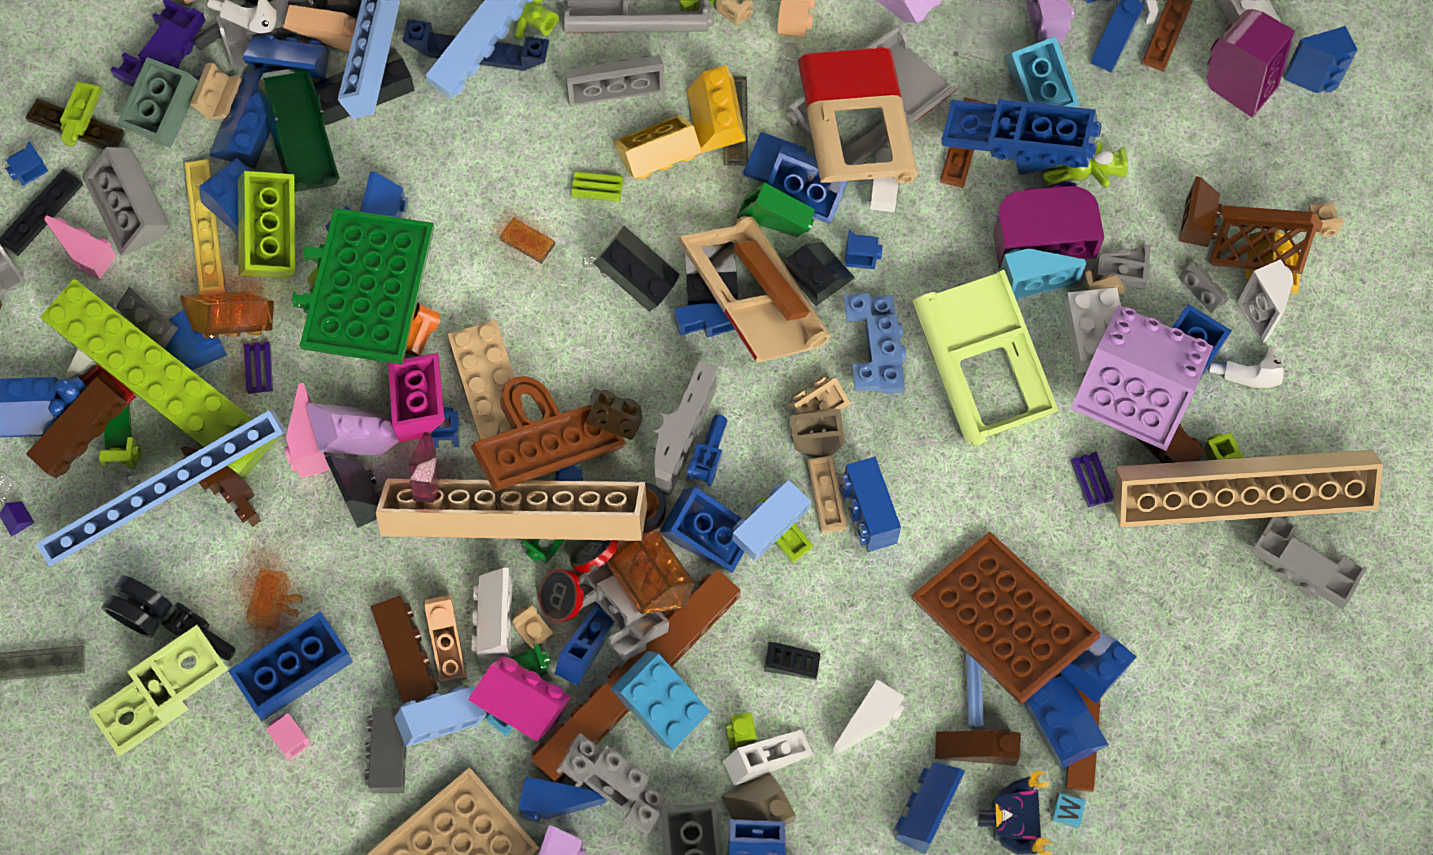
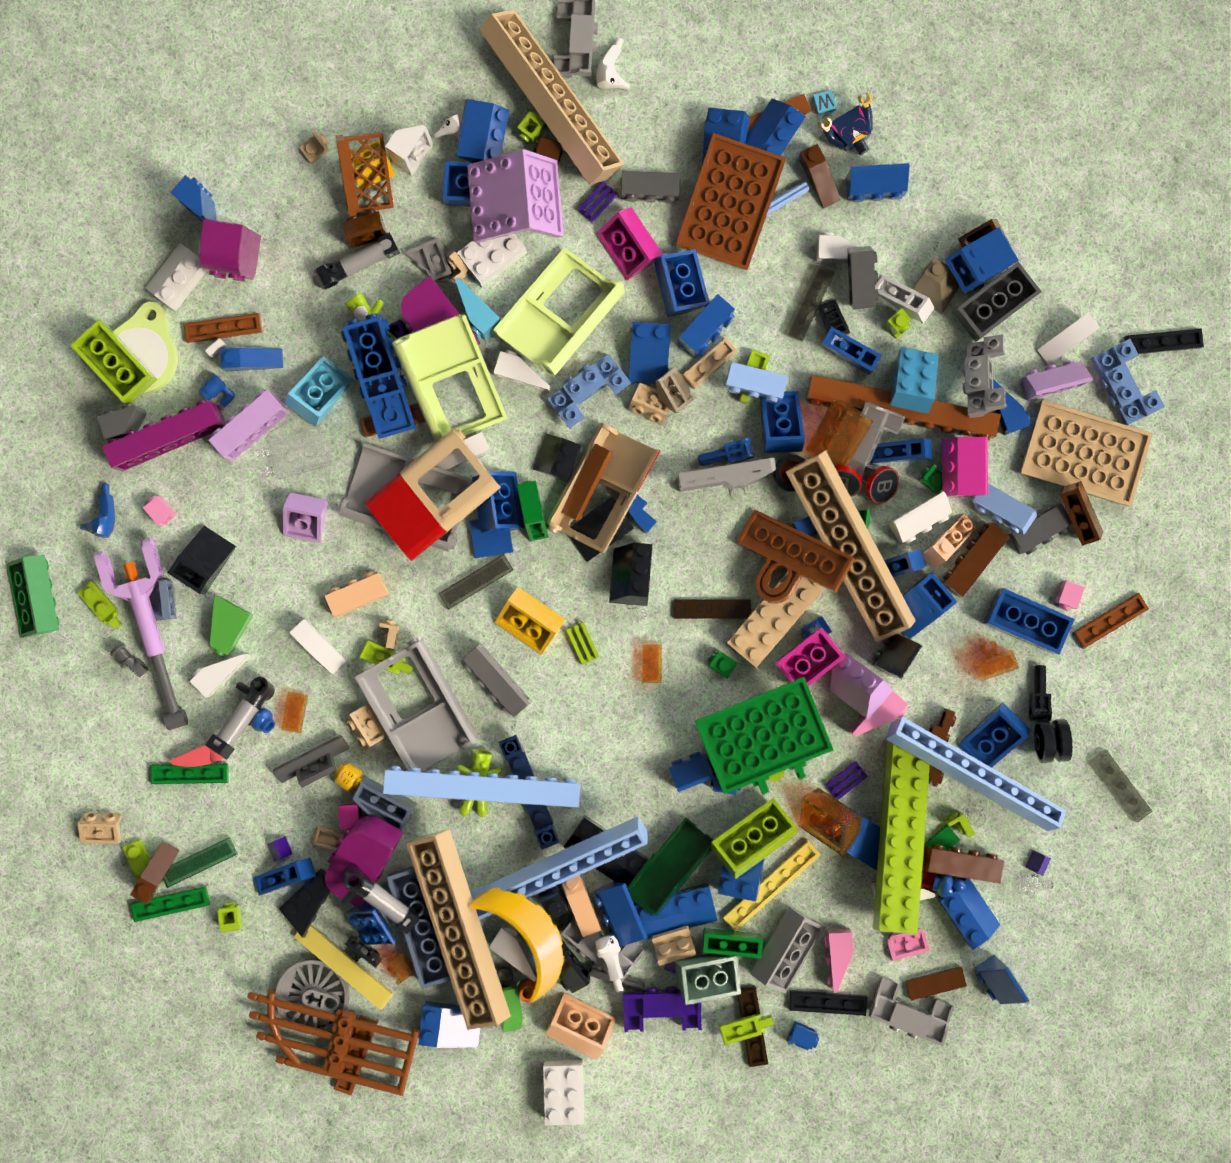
camera: 115 degrees left, 20 degrees up
(34, 333) = (906, 945): none -> bright pink slope
(146, 317) = (861, 874): dark grey plate -> none
(158, 690) = (1094, 690): yellowish green bracket -> none
(174, 148) = (732, 943): none -> green brick
(188, 553) = (995, 736): none -> blue slope
(224, 771) = (1110, 620): none -> dark orange tile
(373, 804) = (1081, 513): none -> reddish brown brick
(393, 565) = (927, 602): none -> blue slope
(423, 324) = (750, 689): orange piece -> none
(424, 470) = (860, 617): clear pink slope -> none
(454, 566) = (905, 563): none -> blue slope
(478, 310) = (722, 663): none -> green bracket
(531, 627) = (910, 492): tan bracket -> none
(545, 336) = (712, 609): none -> dark brown tile
(614, 414) = (741, 527): dark brown bracket -> none
(715, 109) = (480, 596): yellow slope -> none
(740, 652) = (851, 351): none -> blue slope
(822, 714) = (862, 277): none -> dark grey brick
(829, 645) = (809, 303): none -> clear smoke tile
(862, 251) = (526, 437): blue window -> none
(881, 432) = (649, 352): none -> blue slope
(940, 510) = (681, 282): none -> blue slope
(948, 275) = (516, 370): none -> white slope
(1008, 198) = (440, 353): none -> yellowish green piece
(1022, 483) = (629, 243): none -> dark pink slope
(1076, 543) = (650, 186): none -> dark grey brick
(1167, 161) = (332, 273): none -> piece
(1199, 284) = (412, 209): light grey hinge -> none
(1243, 569) = (606, 74): none -> white animal
(1244, 390) = (481, 131): none -> blue slope

